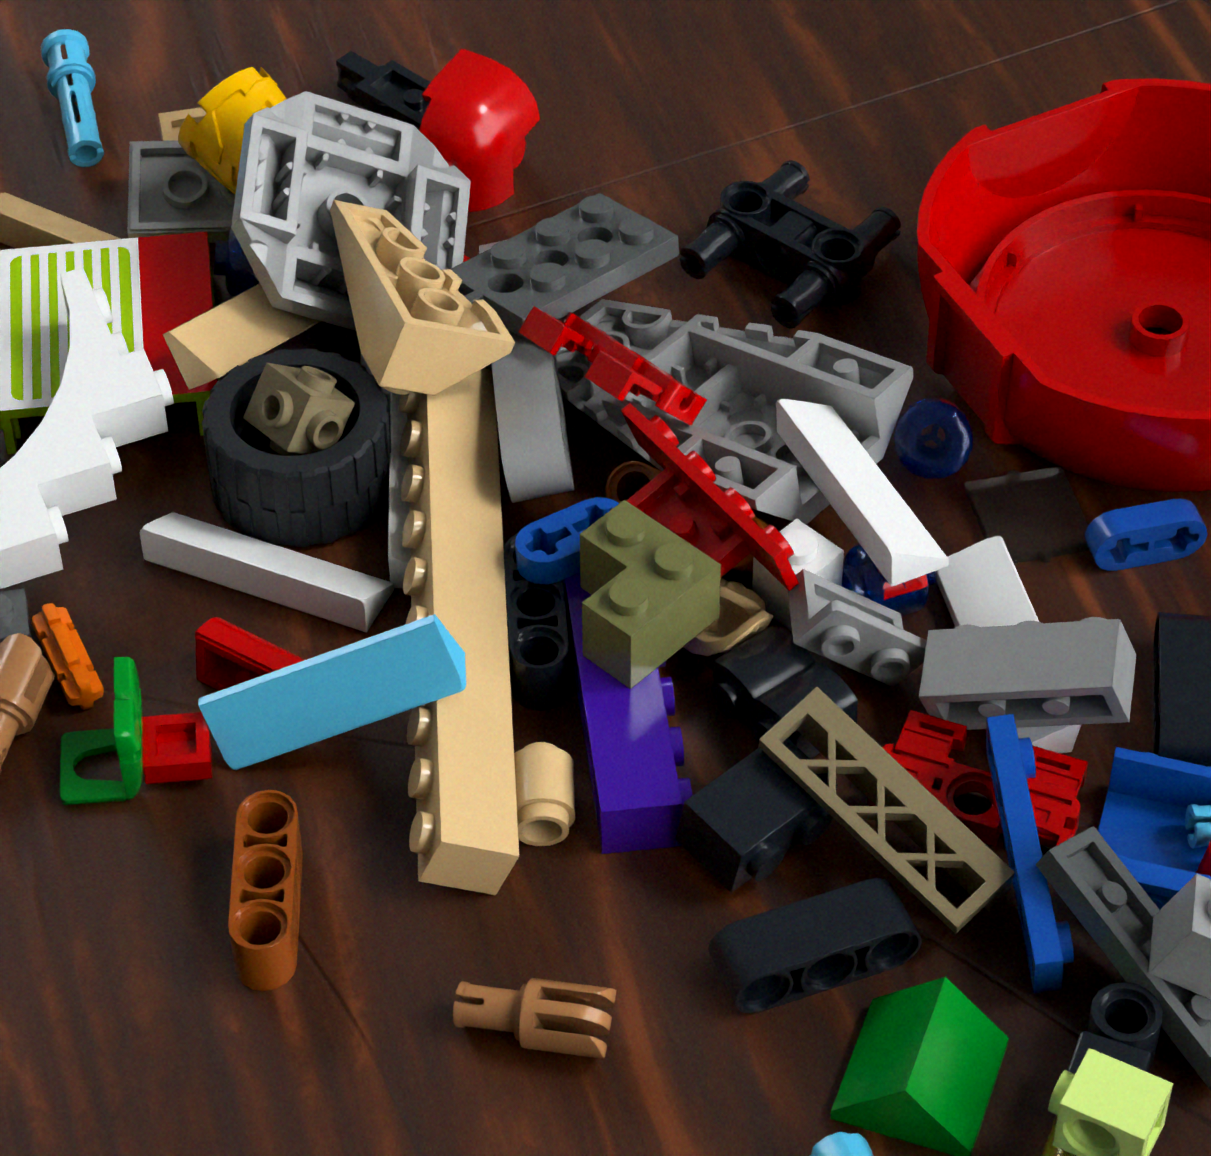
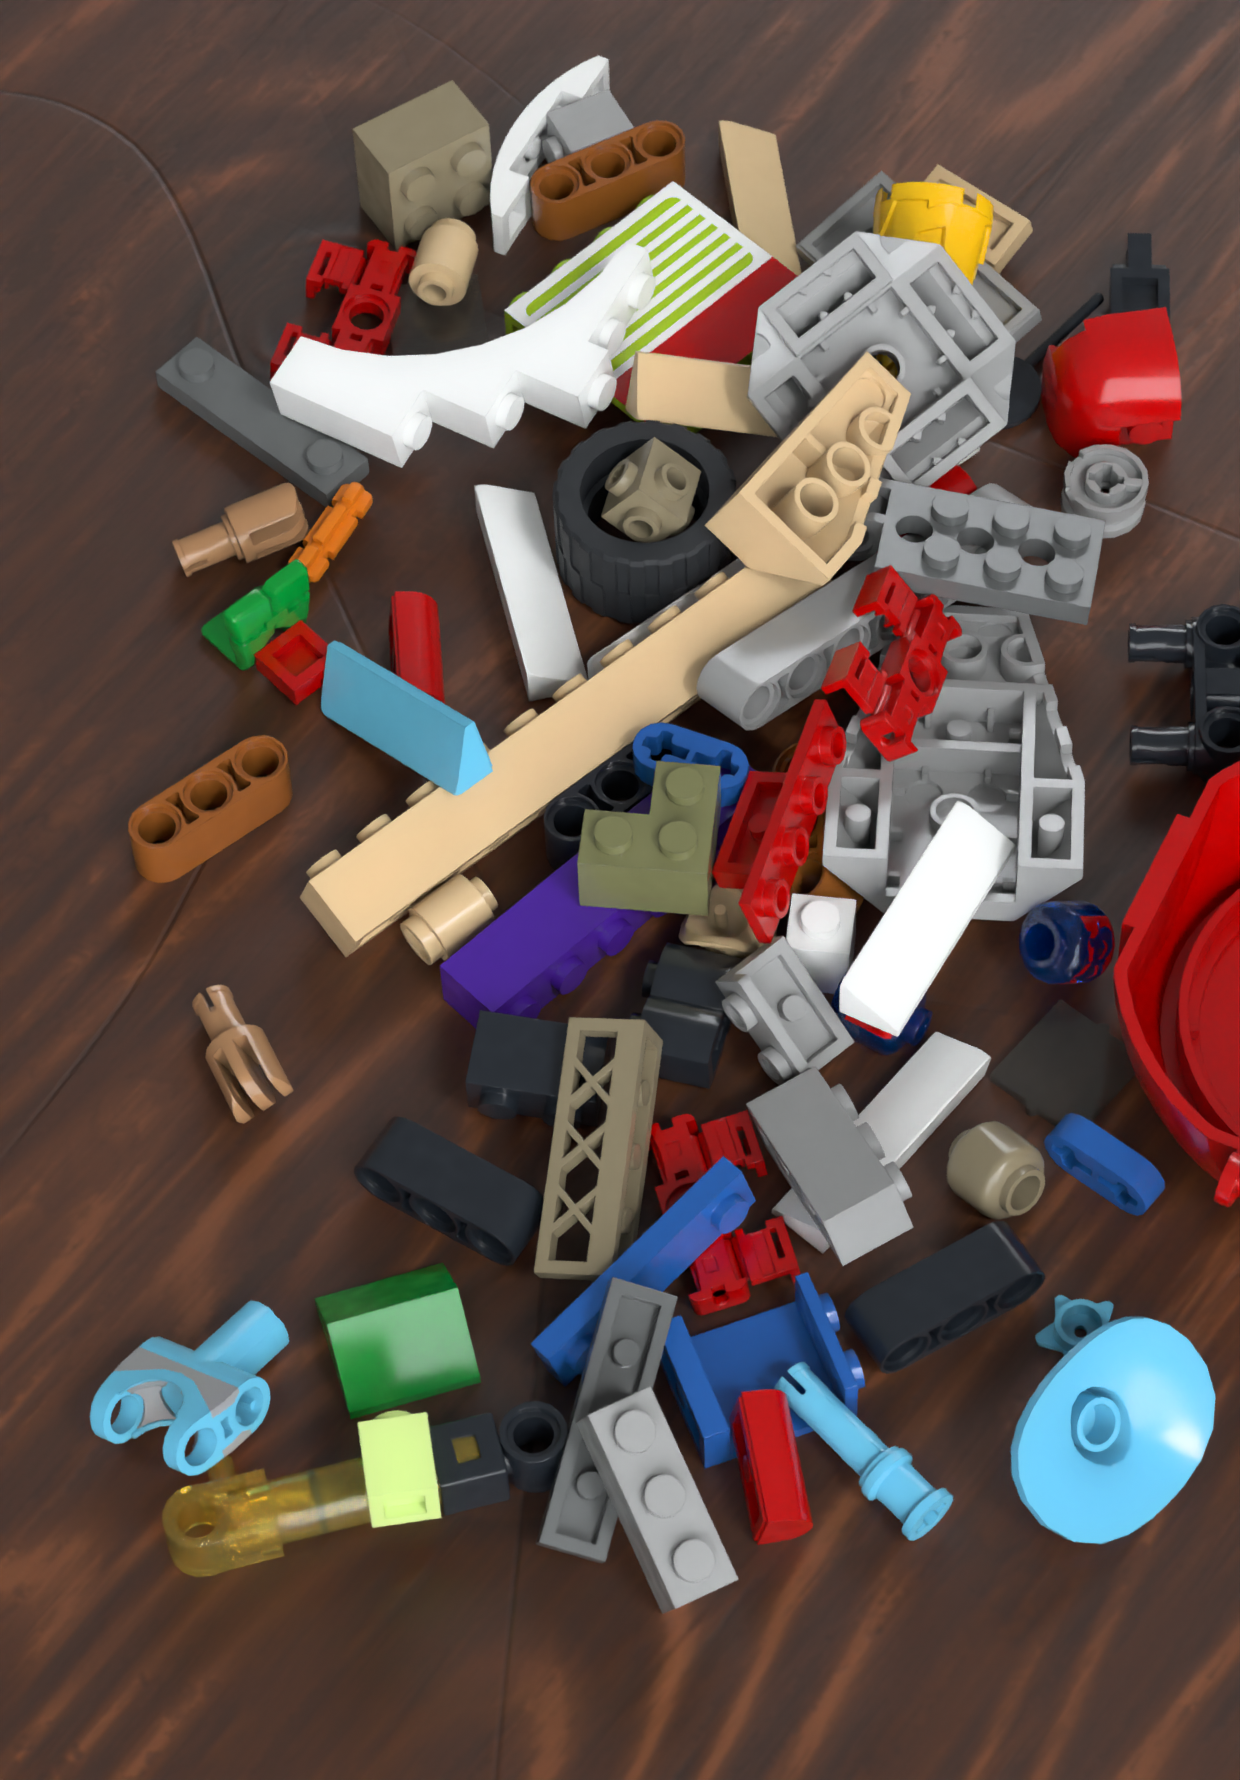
camera: 55 degrees right, 10 degrees up
(82, 137) = (935, 81): medium azure pin -> none
(536, 194) = (1111, 469): none -> light grey wheel
(1102, 588) = (995, 1170): none -> dark tan head

